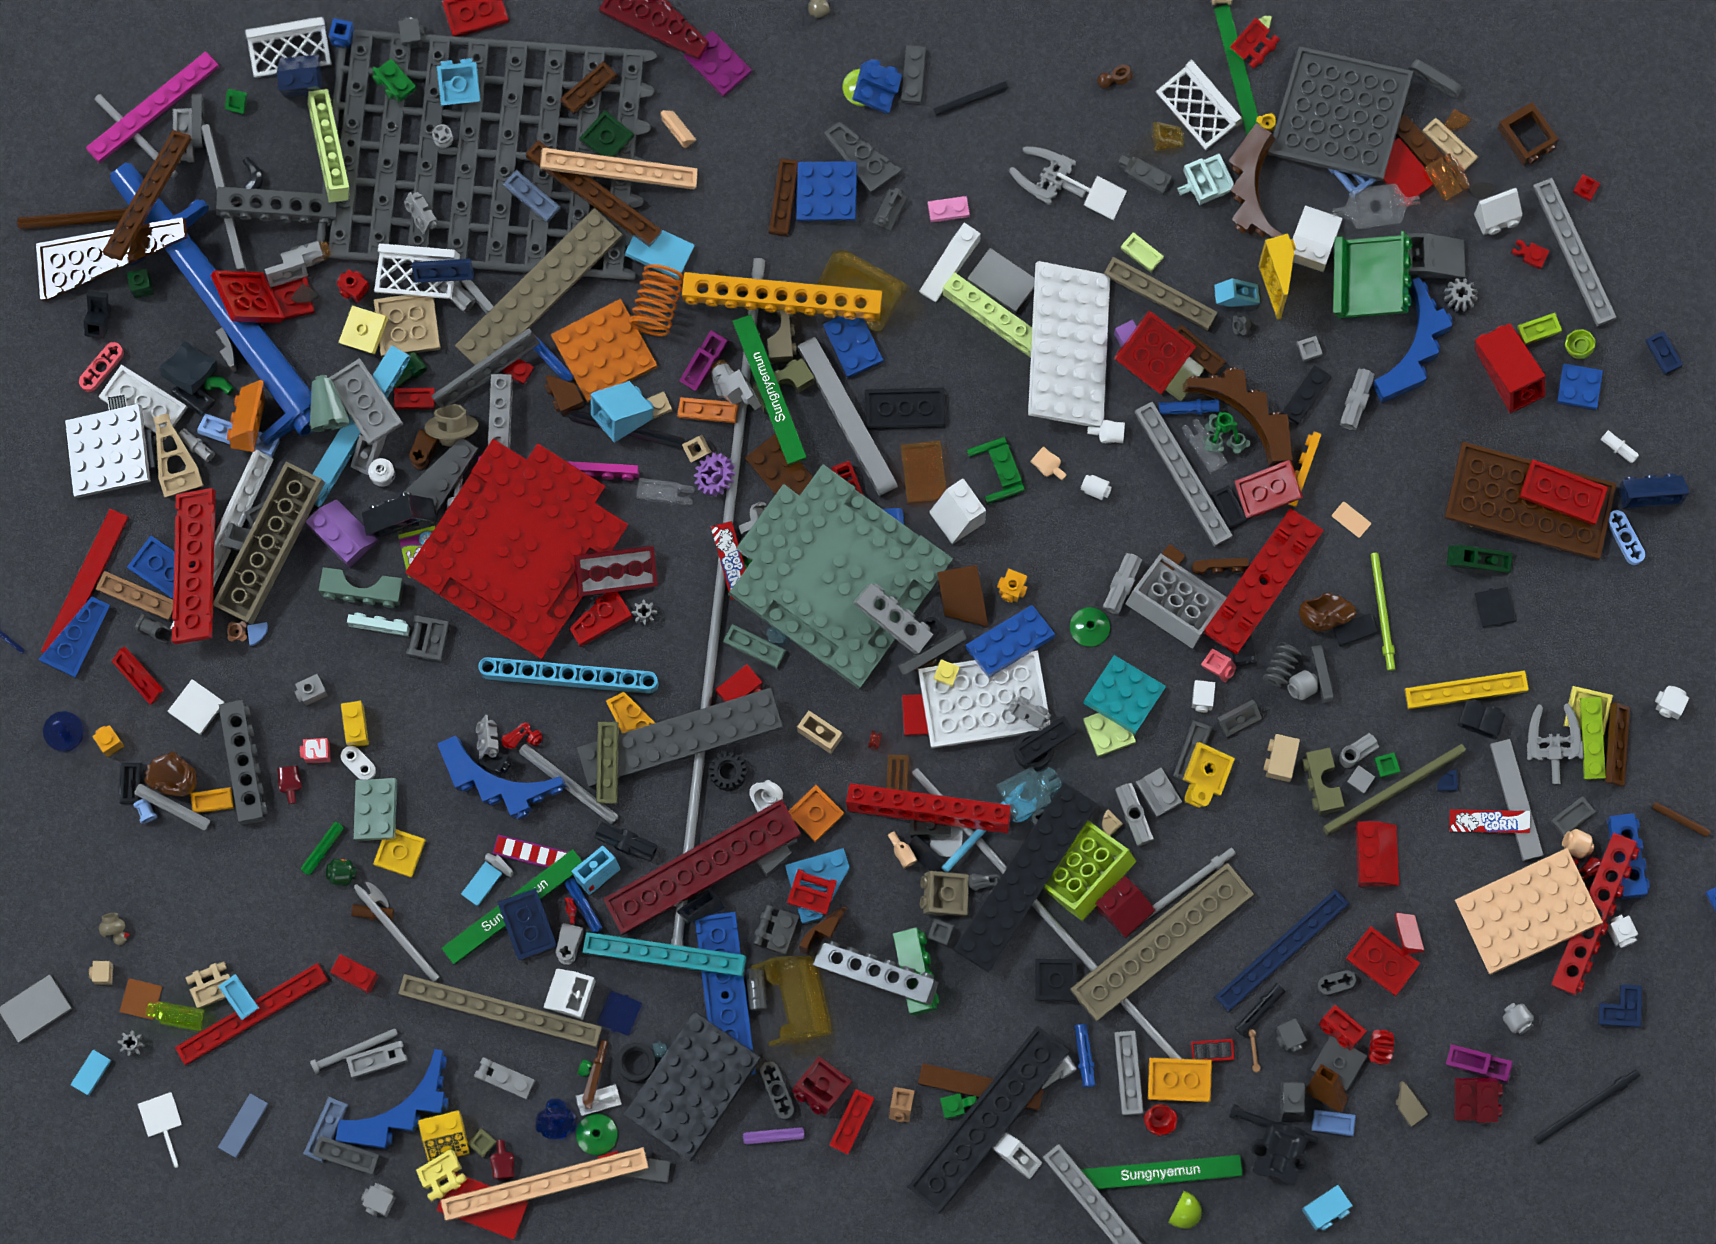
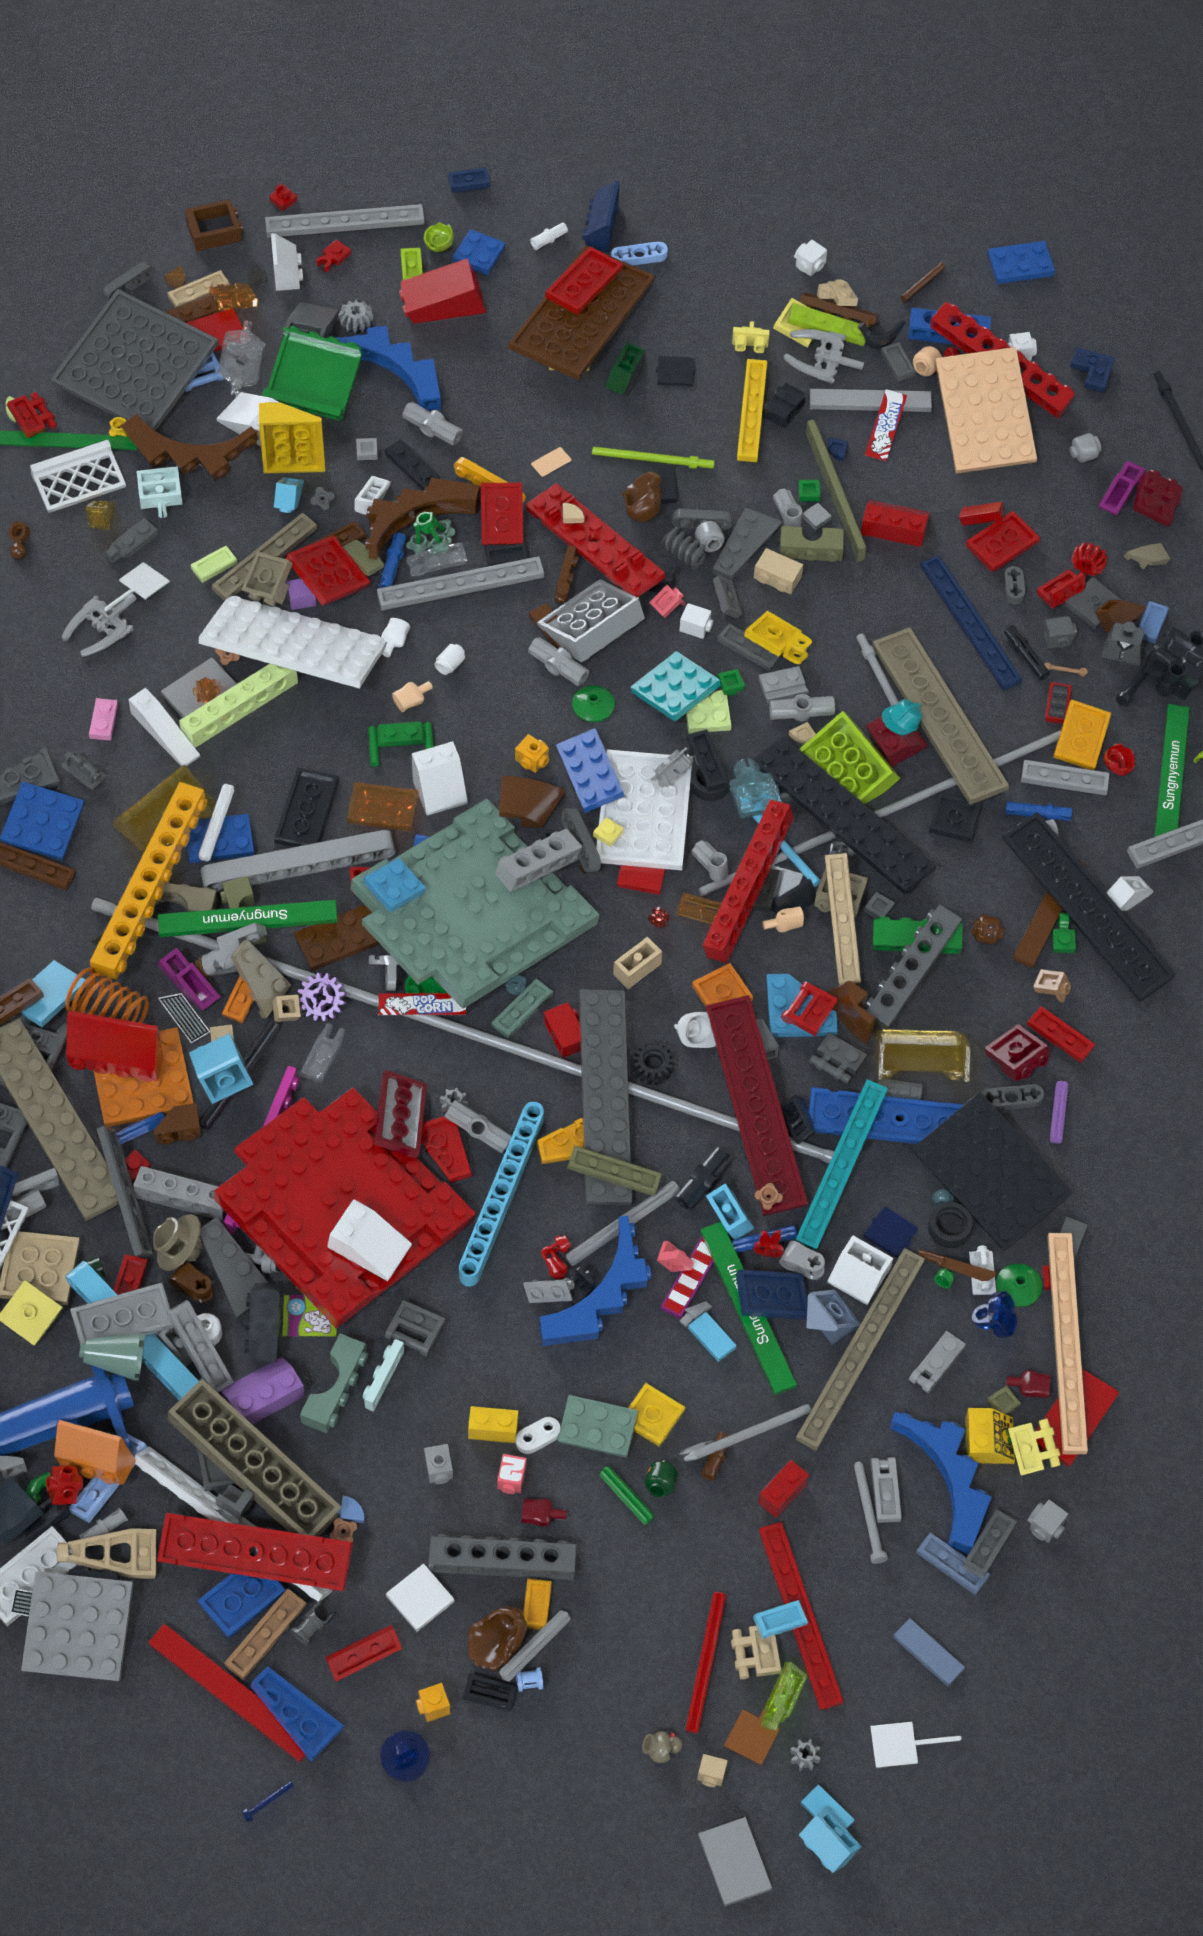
camera: 80 degrees left, 15 degrees down
(62, 1078) = (829, 1841): none -> medium azure brick
(193, 947) = (705, 1662): none -> red axle
(217, 402) = (62, 1480): none -> red brick
(358, 470) = (199, 1346): none -> light grey plate
(479, 576) = (368, 1240): none -> white slope
(523, 977) = (831, 1315): none -> sand blue slope
(543, 831) = (673, 1258): none -> coral bracket
(607, 319) = (113, 1046): none -> red slope
(617, 904) = (770, 1190): none -> nougat plate
(622, 638) = (466, 1117): none -> light grey piece
(672, 368) = (184, 1016): none -> sticker
(716, 417) = (260, 975): none -> dark tan wing
(824, 501) = (394, 885): none -> dark azure plate
(861, 335) = (216, 822): none -> white axle
(910, 900) = (842, 918): none -> tan tile
(940, 1033) = (987, 929): none -> reddish brown head
(946, 771) = (712, 860): none -> light grey piece
(992, 282) = (206, 690): none -> clear orange gear
(1128, 302) = (267, 579): none -> dark tan plate
(1141, 906) = (903, 717): none -> teal piece
(1142, 743) = (731, 682): none -> green tile
(1253, 360) = (369, 493): none -> white slope
(1281, 551) = (572, 514): none -> tan tile
(1311, 720) = (745, 541): none -> dark grey wing
(1550, 659) = (750, 337): none -> light yellow hips
(1593, 794) = (882, 339): none -> black piece
(1633, 739) = (839, 291): none -> tan hinge

